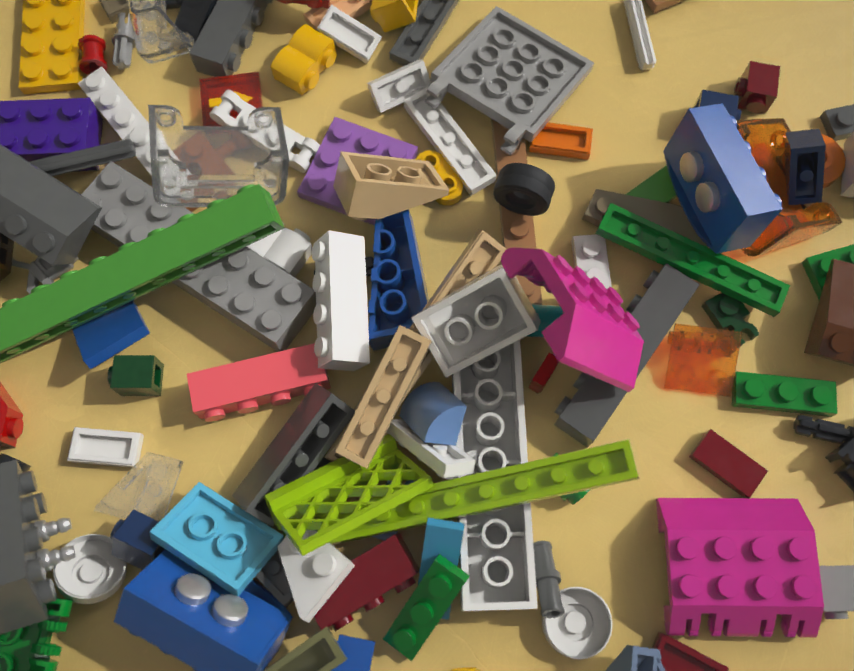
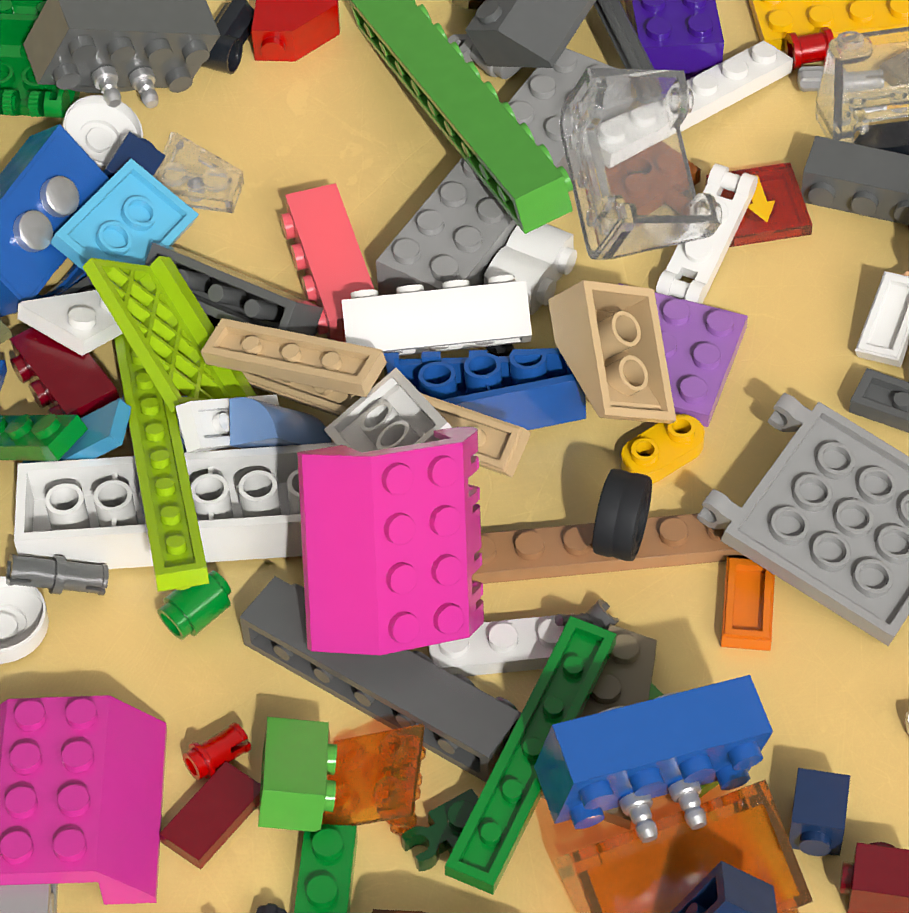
camera: 90 degrees right, 20 degrees down
(105, 447) = (251, 136): white tile -> none
(110, 334) = (392, 112): blue tile -> none
(136, 375) = (339, 148): dark green brick -> none
(304, 59) = (838, 270): yellow brick -> none
(399, 85) = (808, 380): white plate -> none
(450, 142) = (716, 458): white plate -> none
(576, 225) = (595, 615): none -> dark grey hand
(684, 461) = (211, 754): none -> red pin
(714, 405) = (295, 775): none -> bright green brick

